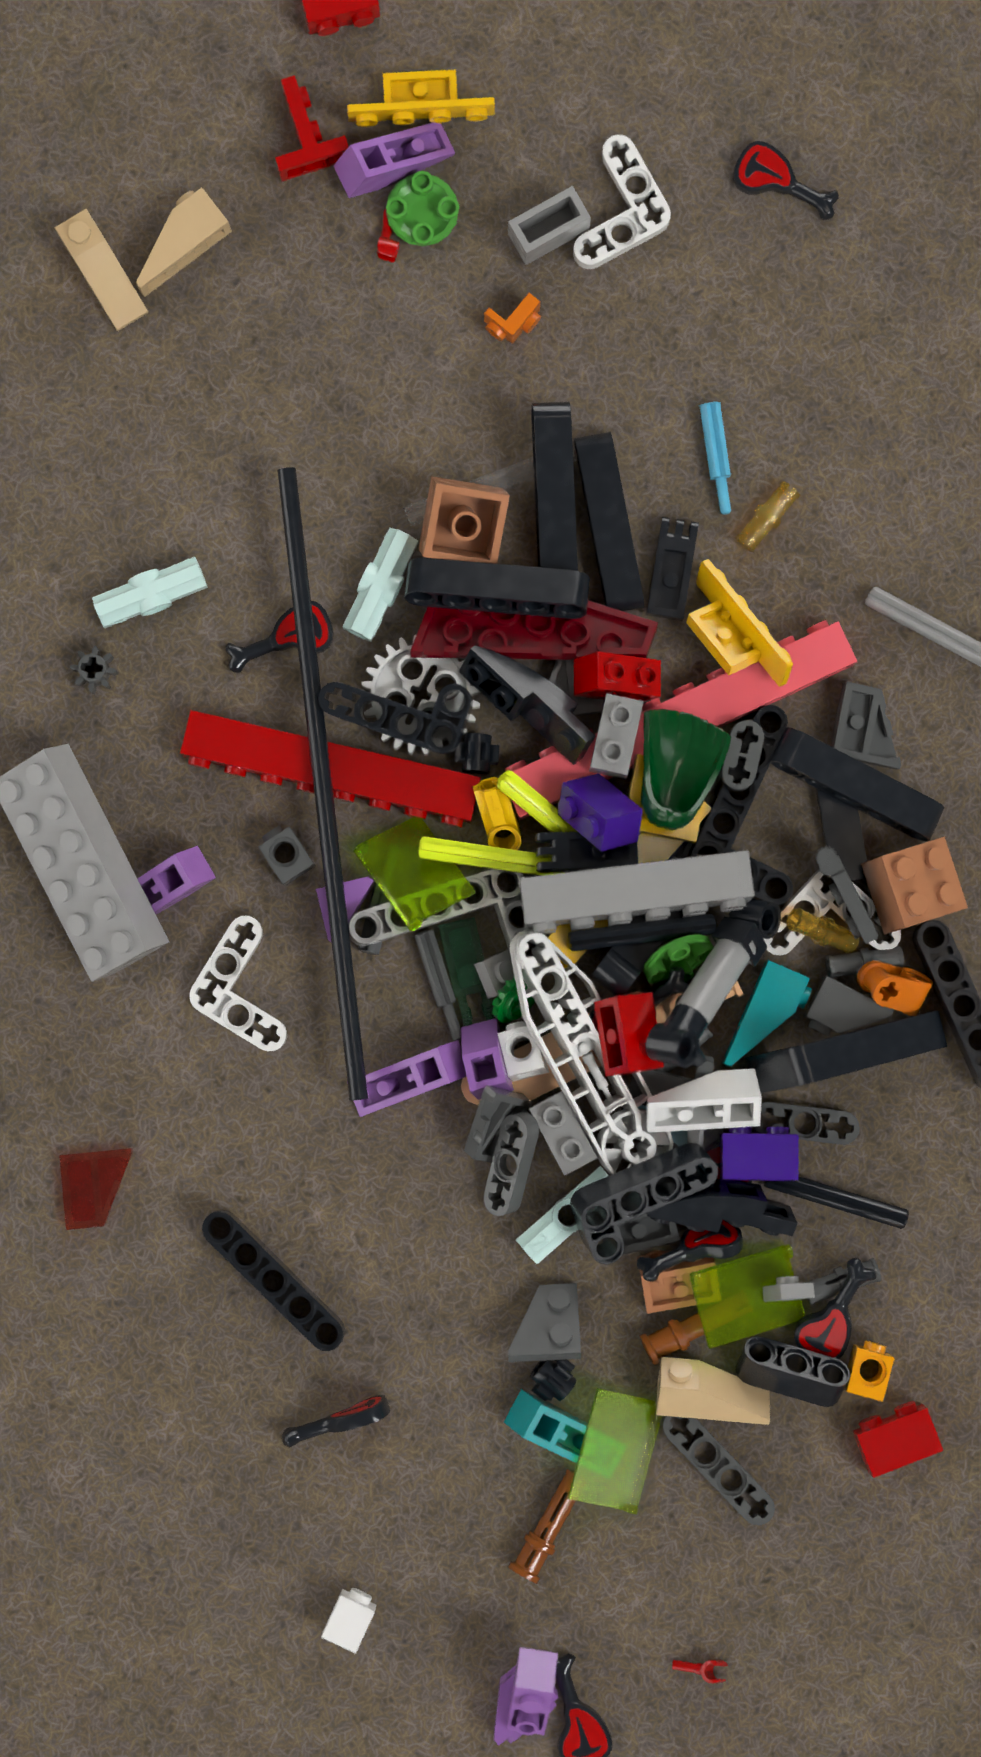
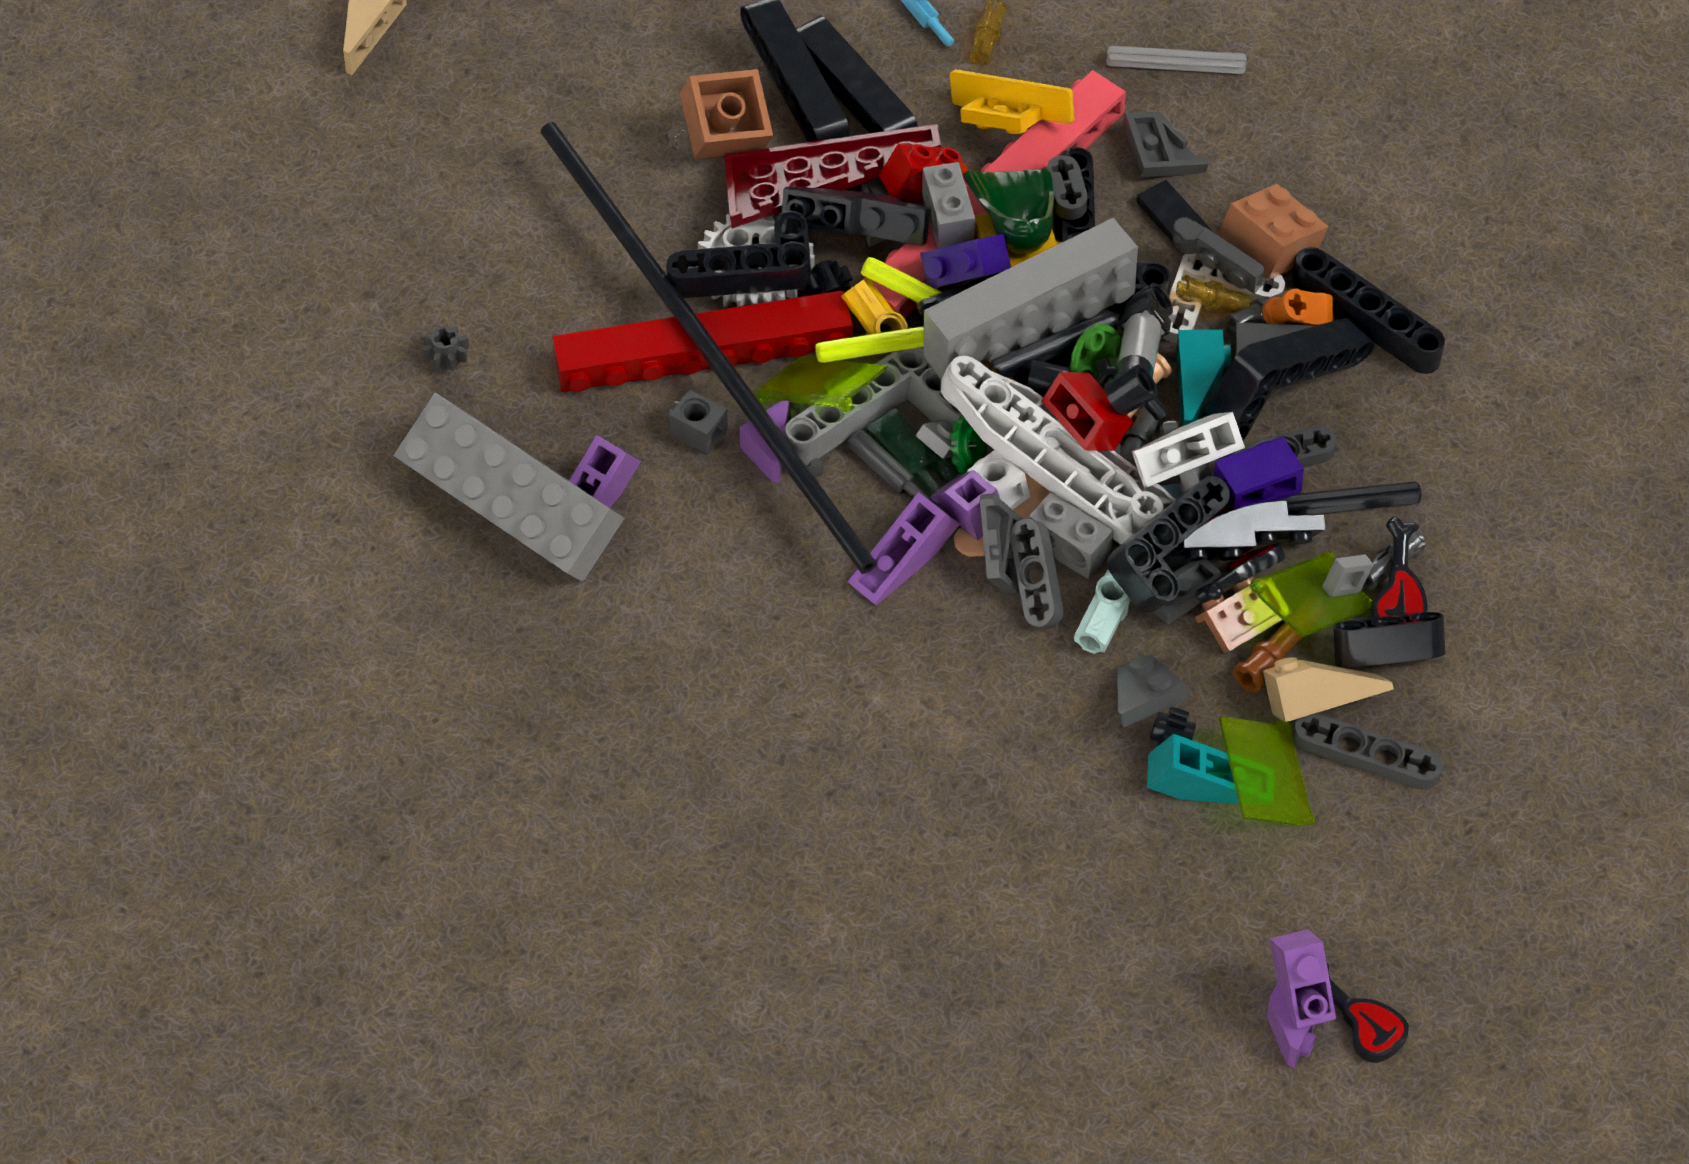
camera: 25 degrees left, 30 degrees down
(91, 1185) = (647, 754): clear red wing -> none
(101, 269) = (302, 59): tan slope -> none
(149, 592) = (467, 274): light aqua piece -> none
(227, 998) = (699, 556): white beam -> none
(279, 1298) = (852, 743): black beam -> none
(283, 638) = (609, 263): black piece -> none
(349, 1619) = (1093, 1013): white brick -> none
(353, 1417) = (1000, 837): black piece -> none
(380, 584) = (674, 195): light aqua piece -> none
(497, 588) = (782, 146): black beam -> none
(535, 1540) = (1239, 888): dark orange pin -> none
(672, 570) = (927, 94): black hinge -> none
(705, 1669) = (1457, 919): red hand -> none
(857, 784) = (1173, 177): black beam -> none
(876, 1386) = (1462, 629): light orange brick -> none
(897, 1438) = (1517, 659): red brick -> none

